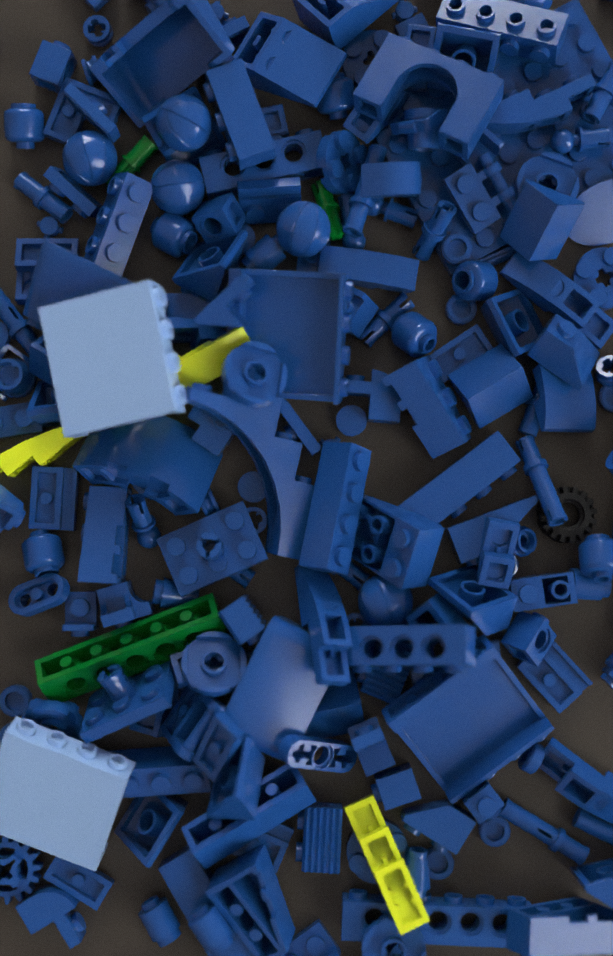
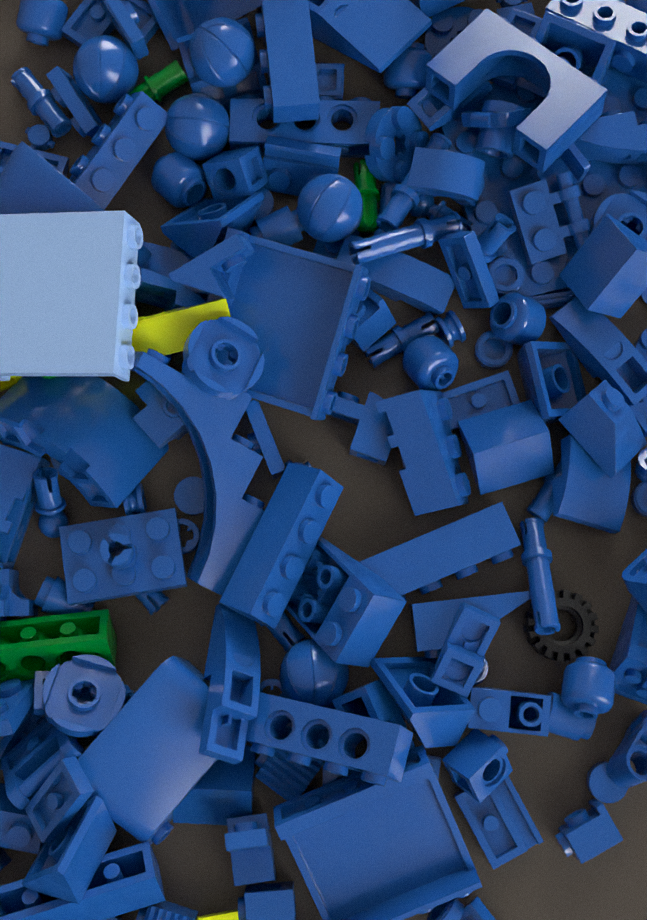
camera: 15 degrees right, 5 degrees down
(243, 620) = (135, 651): blue brick -> none
(309, 746) = (173, 828): blue beam -> none
(351, 420) = (330, 447): blue tile -> none
(380, 233) = (421, 234): none -> blue pin
(423, 301) = (450, 328): none -> blue bush
(427, 251) = (469, 269): none -> blue plate
(526, 542) = (502, 645): blue plate -> none

